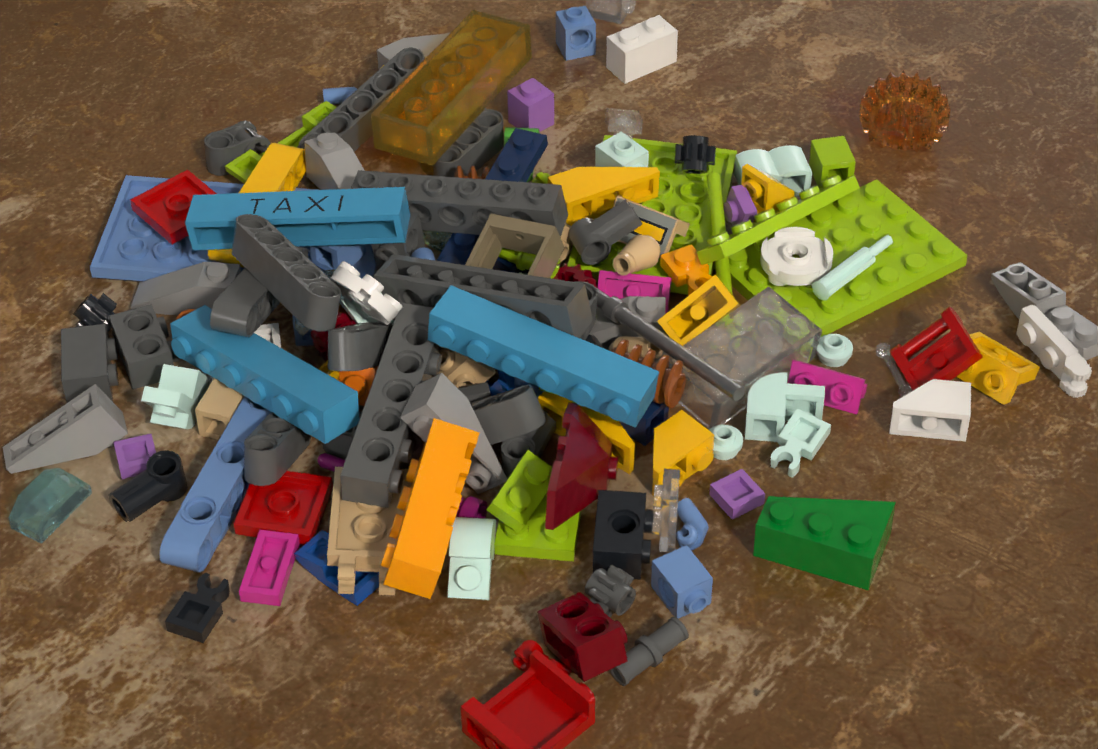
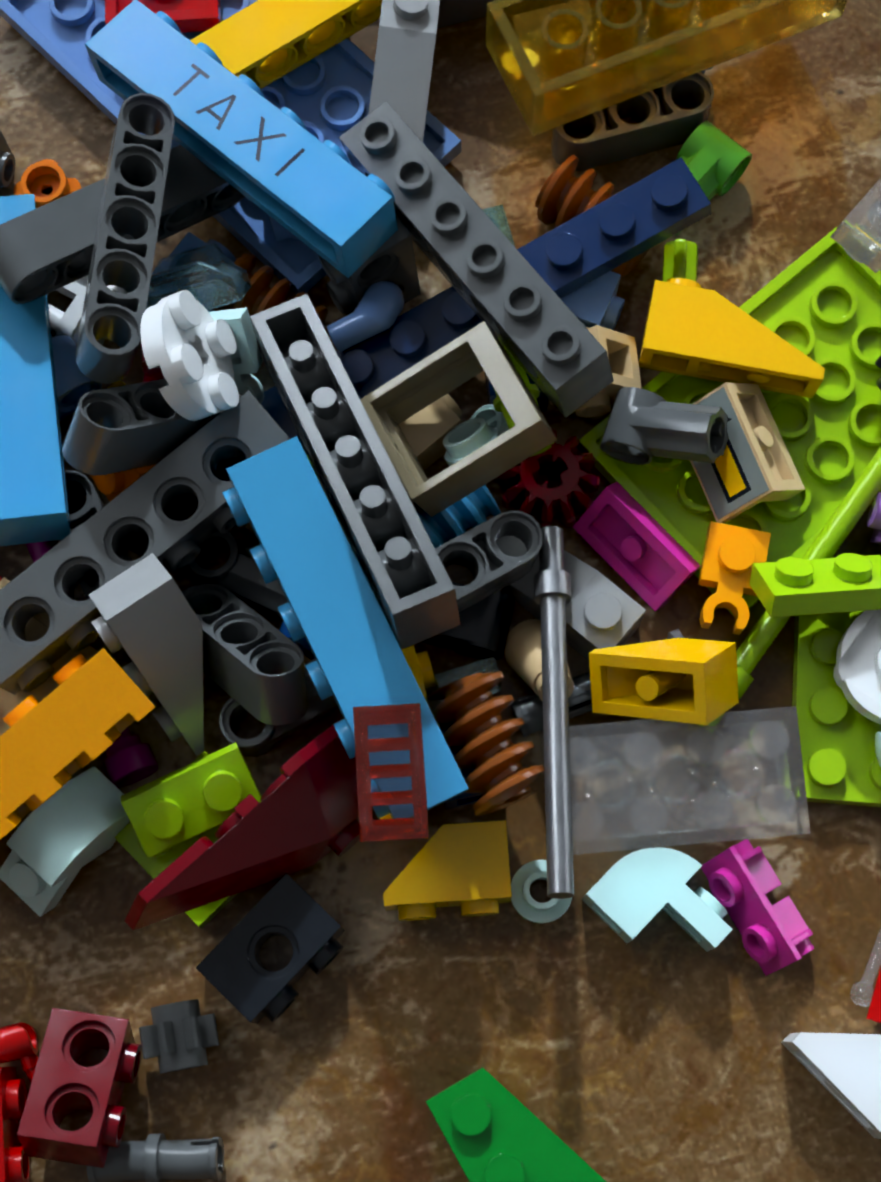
camera: 40 degrees right, 30 degrees up
(186, 288) = (68, 119): light grey slope -> none
(531, 105) = (777, 102): medium lavender brick -> none
(620, 152) = (803, 306): light aqua brick -> none
(630, 399) = (398, 828): none -> clear red slope
(638, 254) = (671, 504): tan cone -> none
(665, 521) = (340, 977): clear plate -> none
(681, 582) = (281, 1093): medium blue brick -> none
(694, 526) = (381, 1005): medium blue arm -> none
(737, 494) = (478, 998): medium lavender plate -> none
(800, 437) = (643, 971): light aqua plate -> none
(834, 350) = (810, 856): light aqua plate -> none

